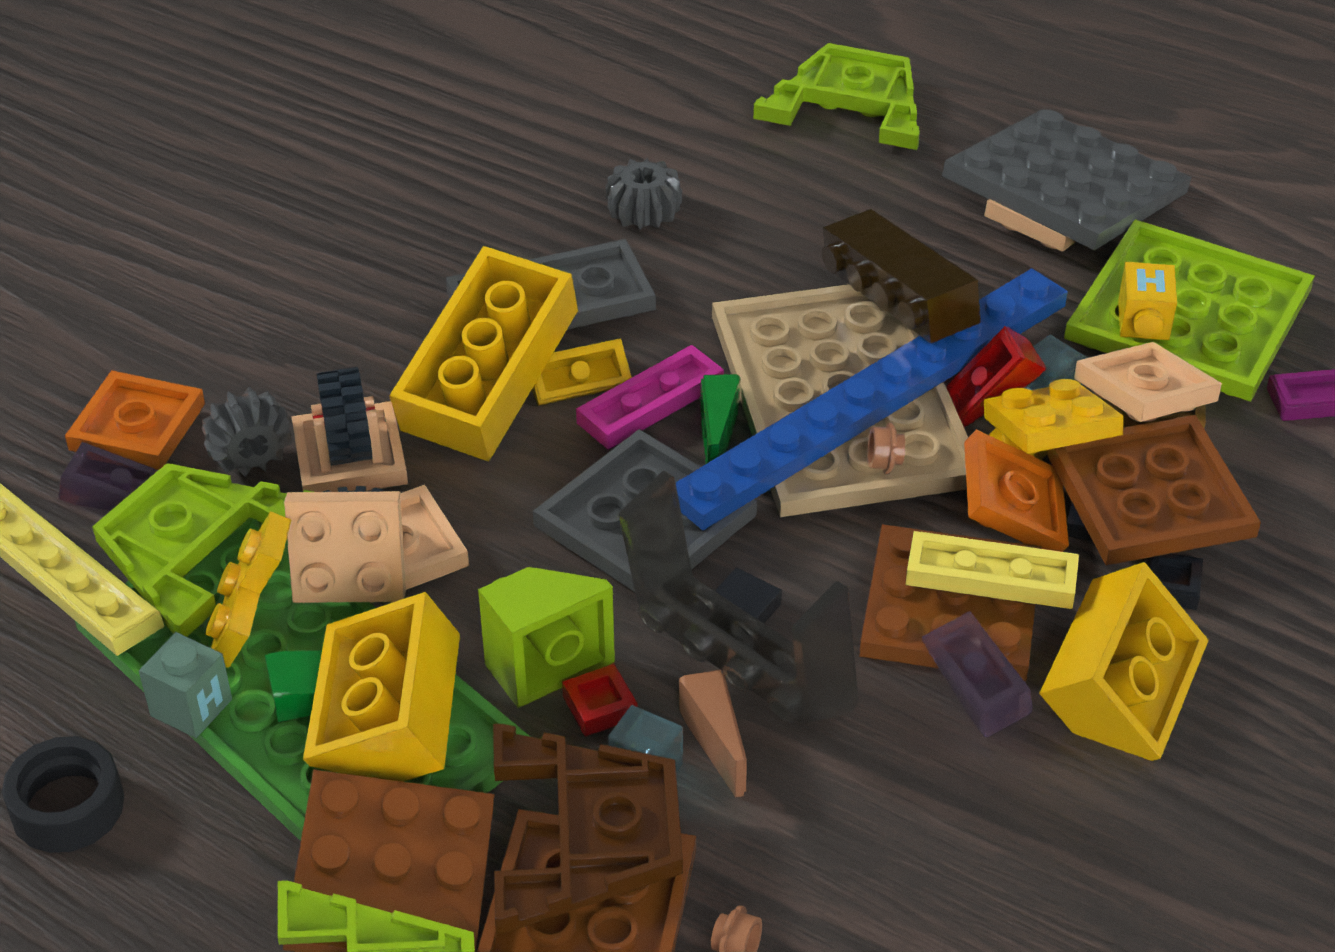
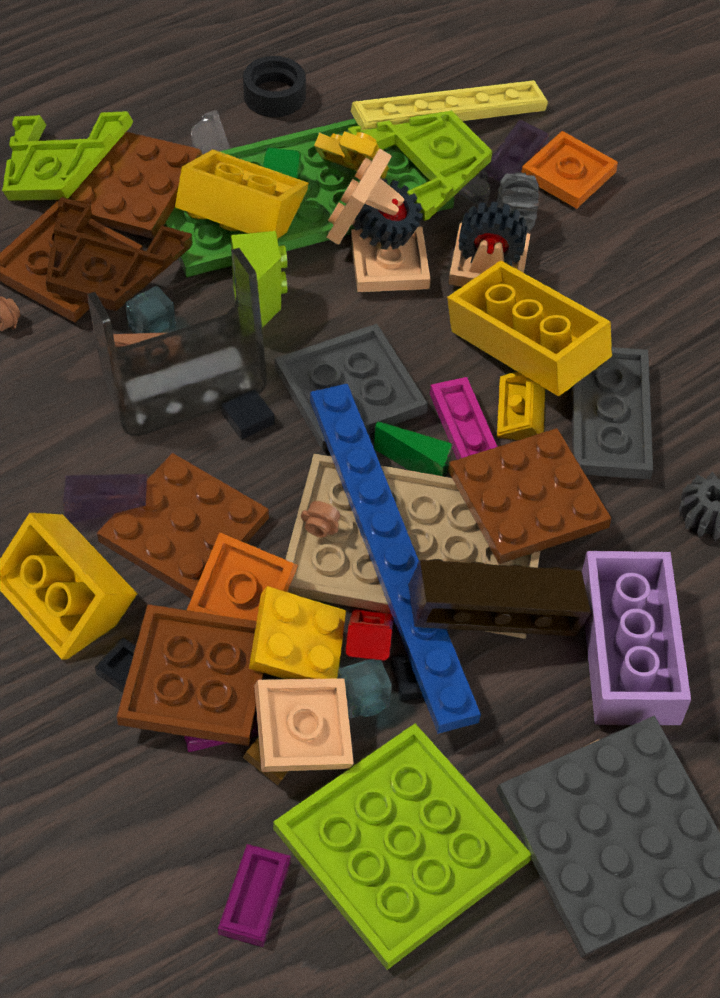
camera: 110 degrees right, 10 degrees up
(185, 684) = (299, 120): sand green brick -> none
(214, 844) = (209, 134): none -> clear tile
(598, 699) = (203, 306): red plate -> none
(728, 309) = (528, 495): none -> dark orange plate
(894, 178) = (634, 638): none -> lavender brick
(992, 569) = (169, 527): light yellow plate -> none
(1147, 300) = (393, 772): yellow brick -> none

